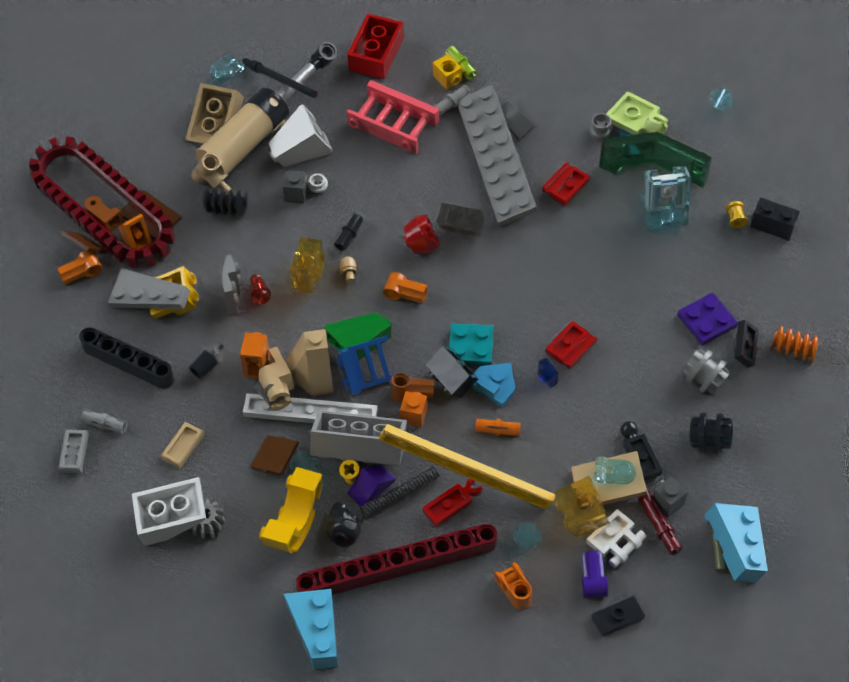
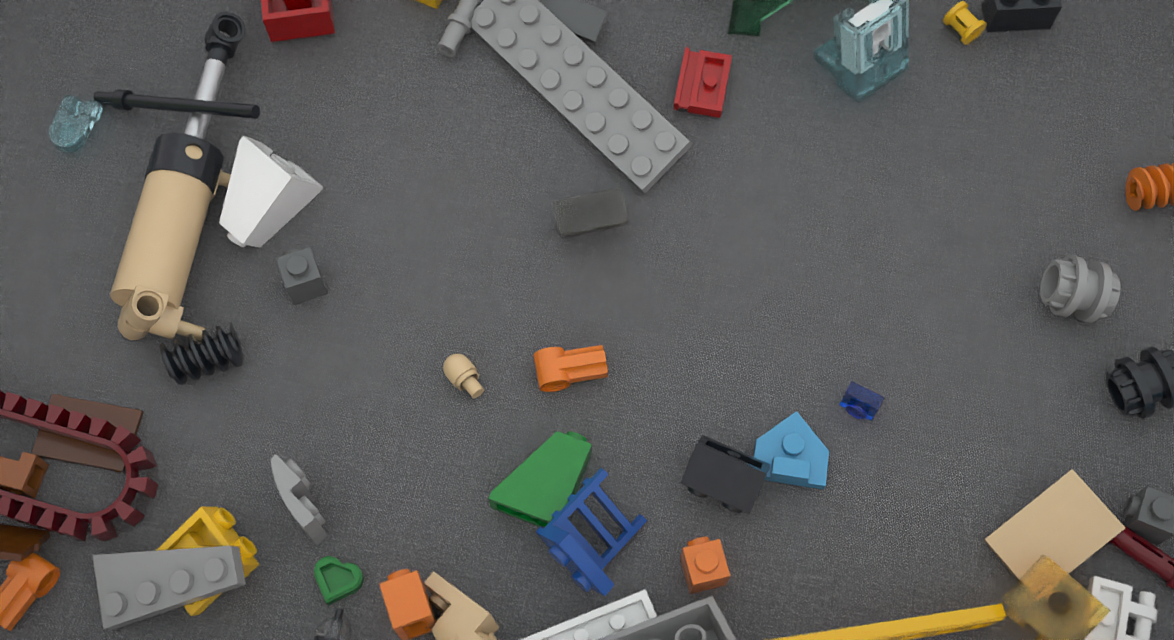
camera: 30 degrees left, 10 degrees up
(135, 233) = (84, 483): orange slope -> none
(211, 111) = (97, 211): tan slope -> none
(229, 333) = (337, 579): none -> green tile
(259, 290) = (343, 480): clear red cone -> none
(307, 265) = (402, 403): clear yellow brick -> none
(311, 363) = (506, 574): tan slope -> none
(317, 179) = (328, 244): white plate -> none
(349, 231) = (428, 311): black axle -> none
(393, 100) = (386, 60): coral fence -> none
(402, 382) = (681, 527): dark orange piece -> none
(420, 235) = (546, 268): red cone -> none
(472, 343) = (719, 406): teal plate -> none
(482, 426) = (841, 528): orange pin -> none
(571, 345) = (864, 338): red plate -> none
(622, 471) = (1073, 513): clear light blue plate -> none
(648, 460) = (1059, 456): black plate -> none
(707, 319) = (1021, 201): dark purple plate -> none
(746, 343) = (1094, 204): black plate -> none

